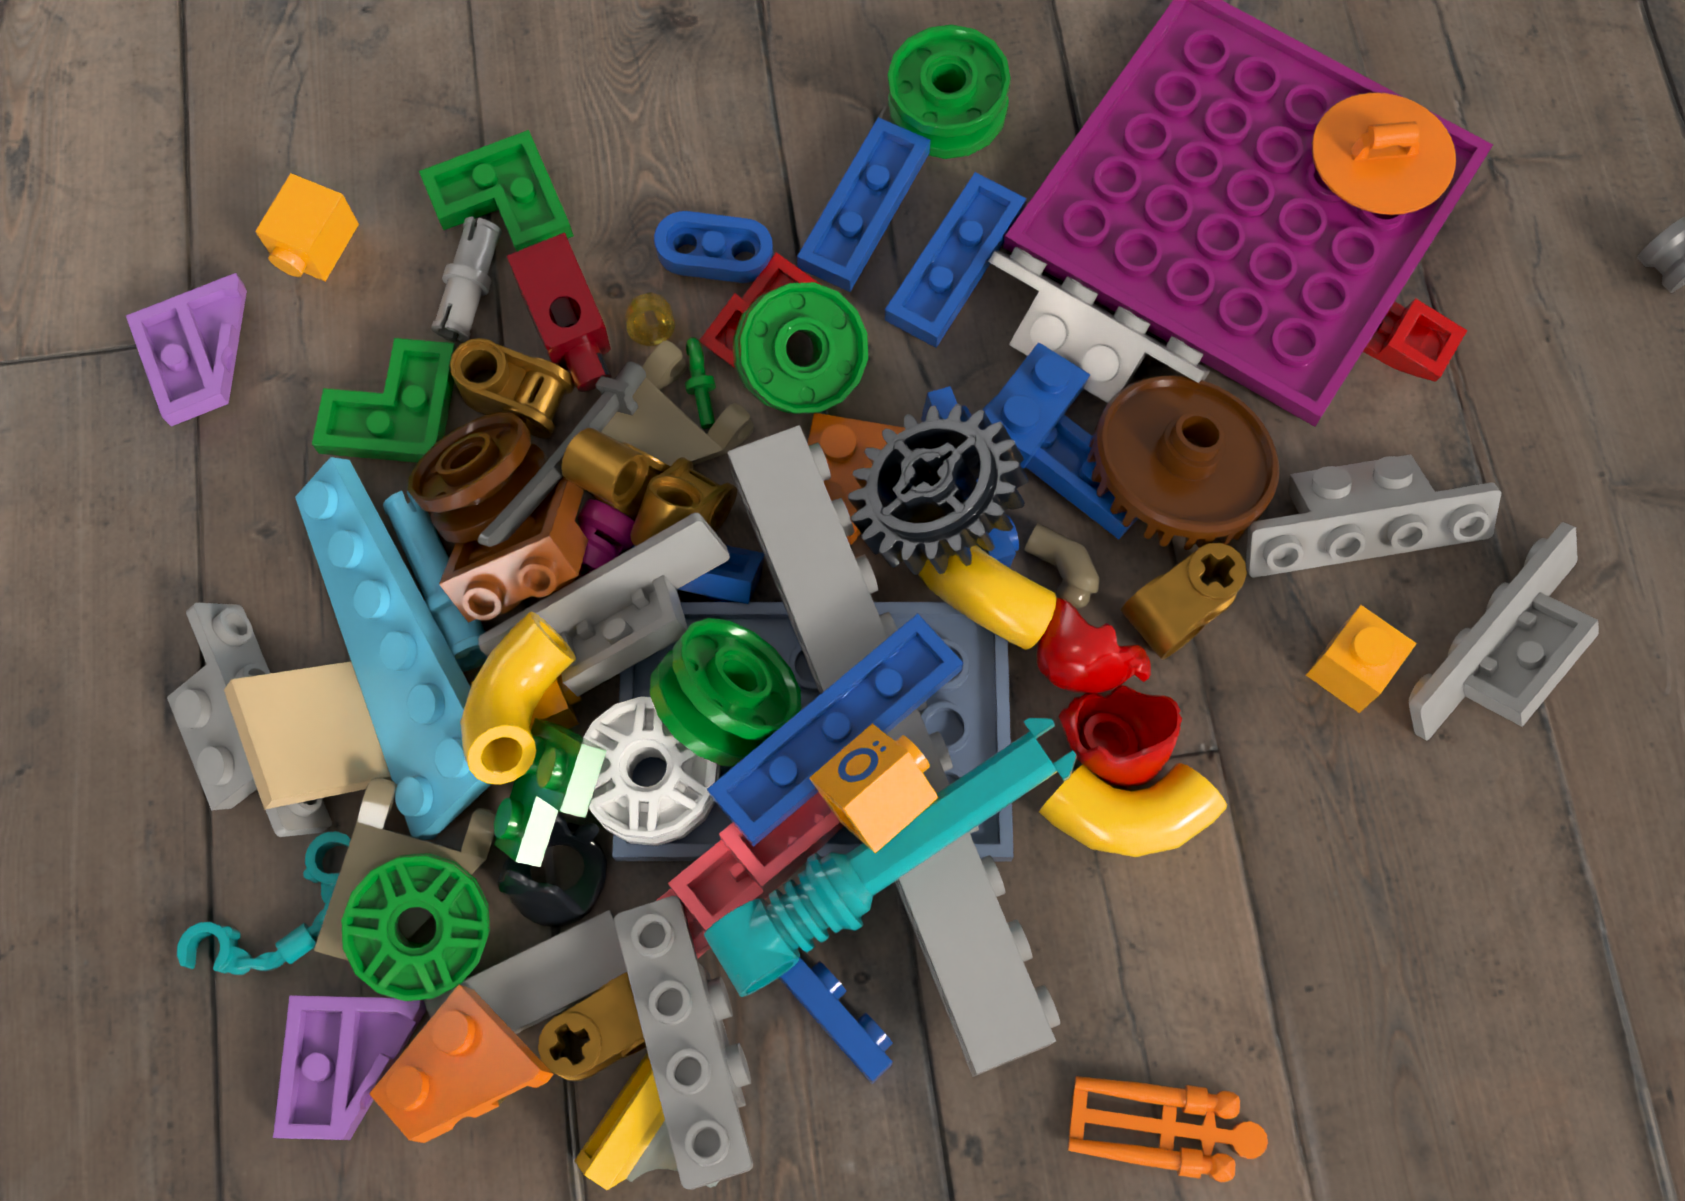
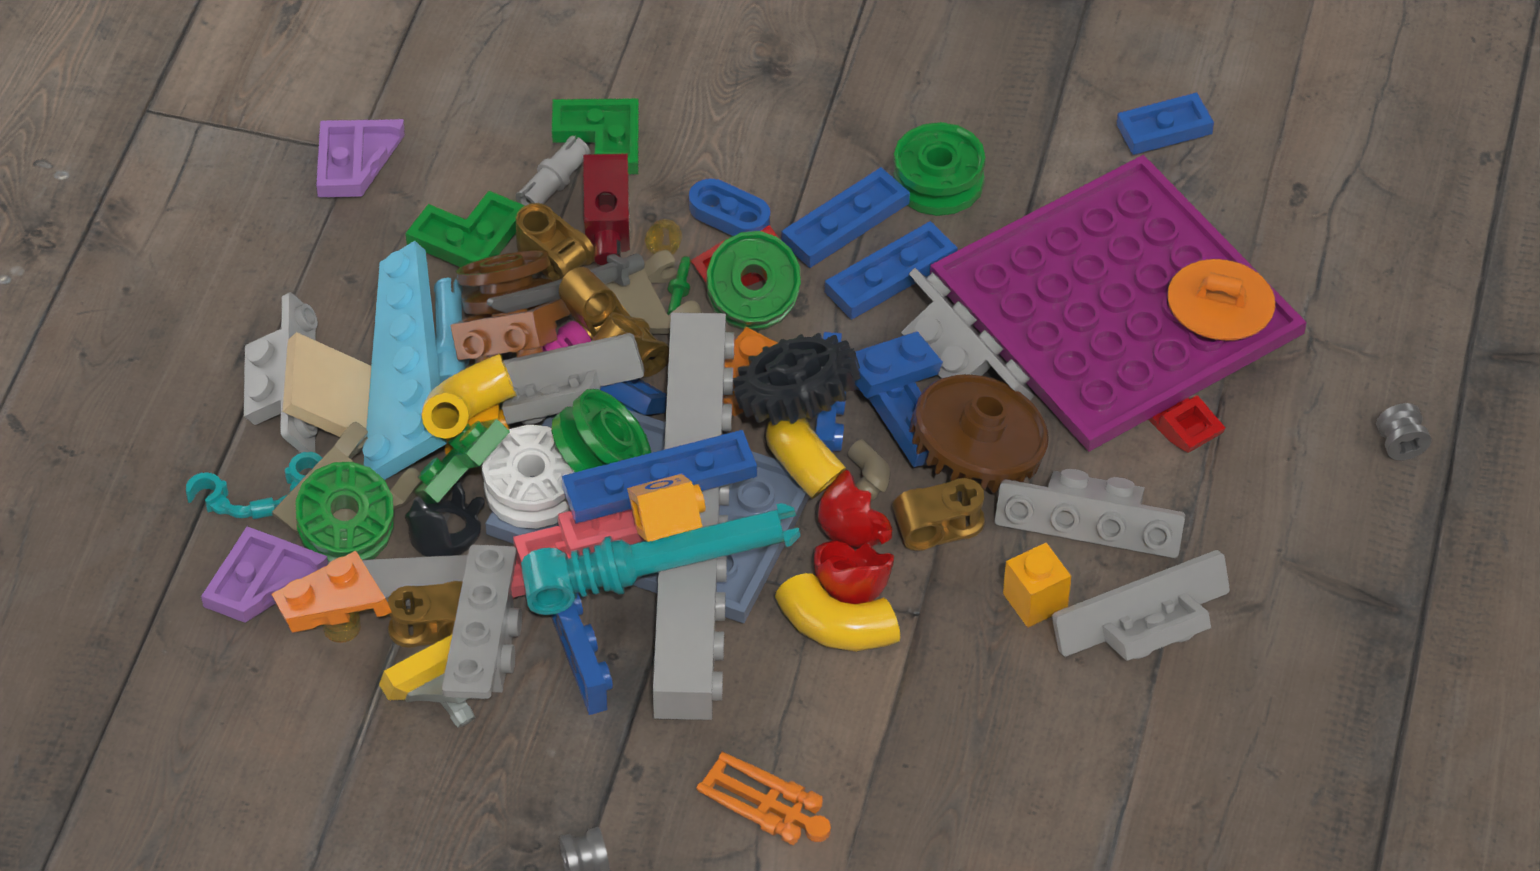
camera: 20 degrees right, 20 degrees down
(306, 228) = (462, 109): light orange brick -> none

